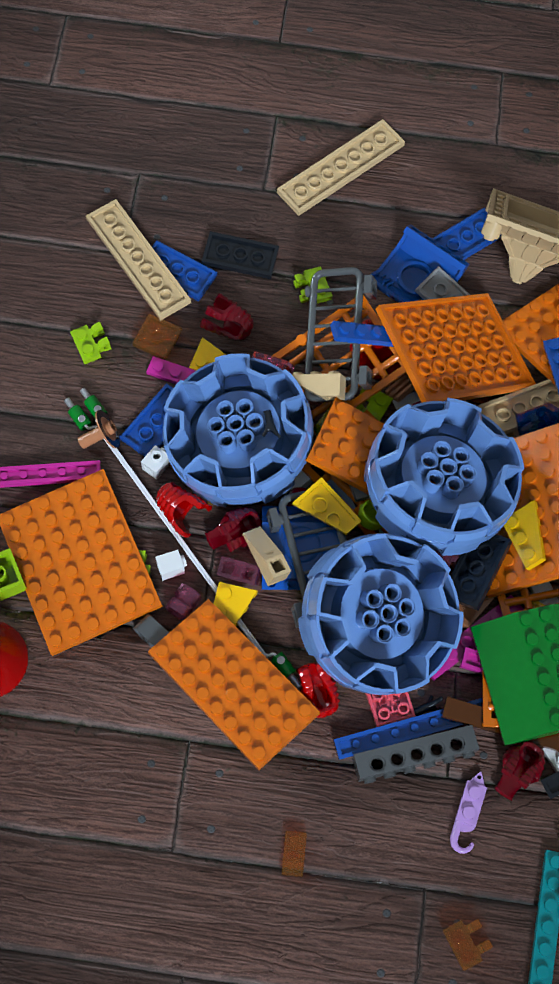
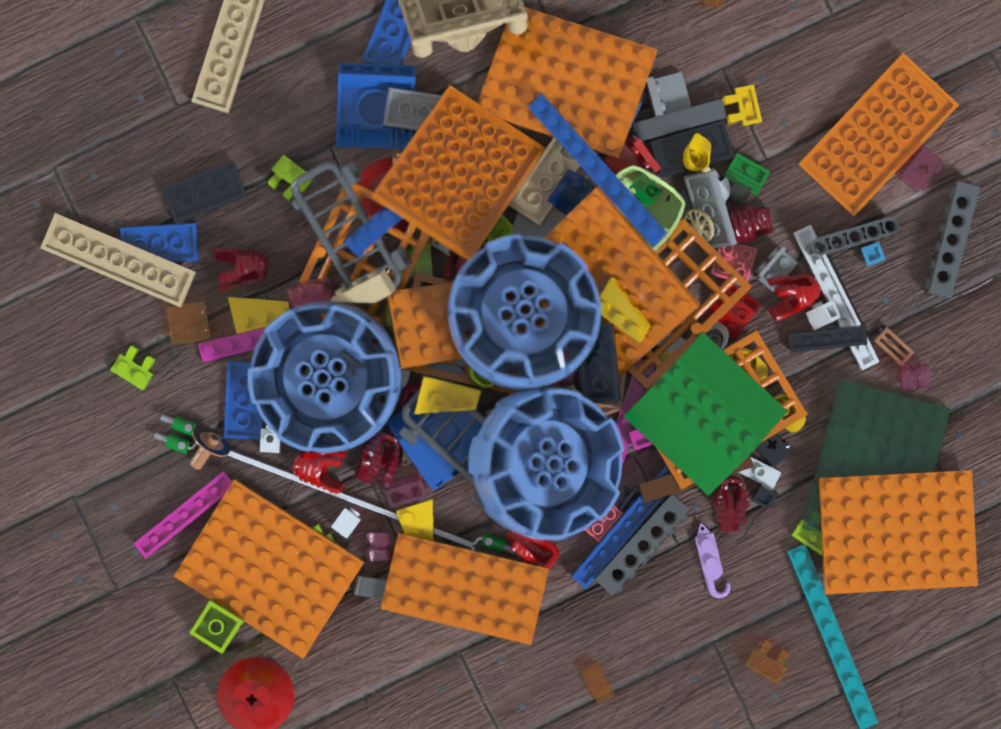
camera: 25 degrees left, 20 degrees up
(267, 556) = (421, 469): tan slope -> none

